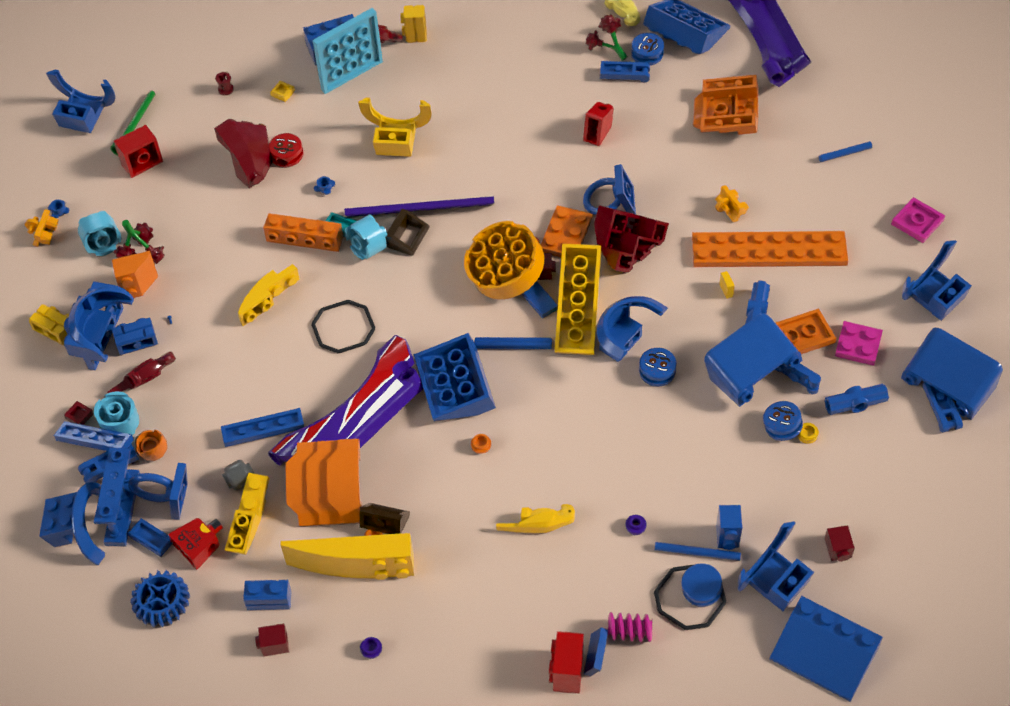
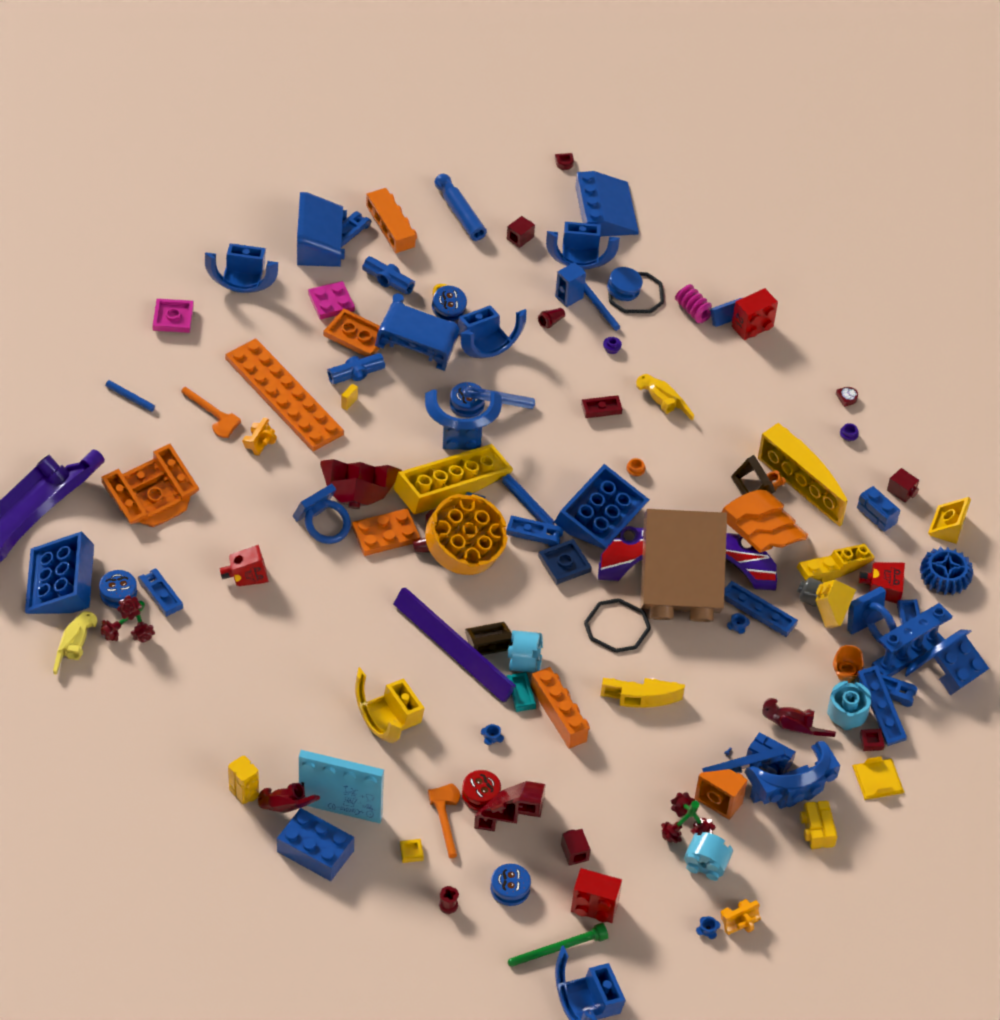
camera: 135 degrees left, 5 degrees down
(49, 399) = (878, 778): none -> yellow piece
(139, 303) = (773, 756): none -> blue plate
(189, 172) = (575, 846): none -> dark red brick
(201, 122) = (510, 884): none -> blue head
(203, 462) = (834, 602): none -> yellow slope
(204, 647) = (949, 520): none -> yellow slope
(264, 400) = (738, 623): none -> blue plate
(304, 130) = (440, 798): none -> orange piece
(336, 373) = (683, 563): none -> medium nougat brick
(413, 683) = (847, 396): none -> tile
(430, 325) = (564, 561): none -> dark blue plate
(481, 323) = (534, 530): none -> blue plate
(567, 463) = (601, 406): none -> dark red plate
(635, 383) = (508, 399): none -> blue axle
(707, 495) = (550, 317): none -> dark red cone
(720, 423) = (482, 332): none -> blue piece
(766, 198) = (227, 422): none -> orange piece
(910, 513) = (460, 207): none -> blue piece
(922, 661) = (564, 161): none -> dark red tile
(928, 439) = (391, 220): none -> orange brick

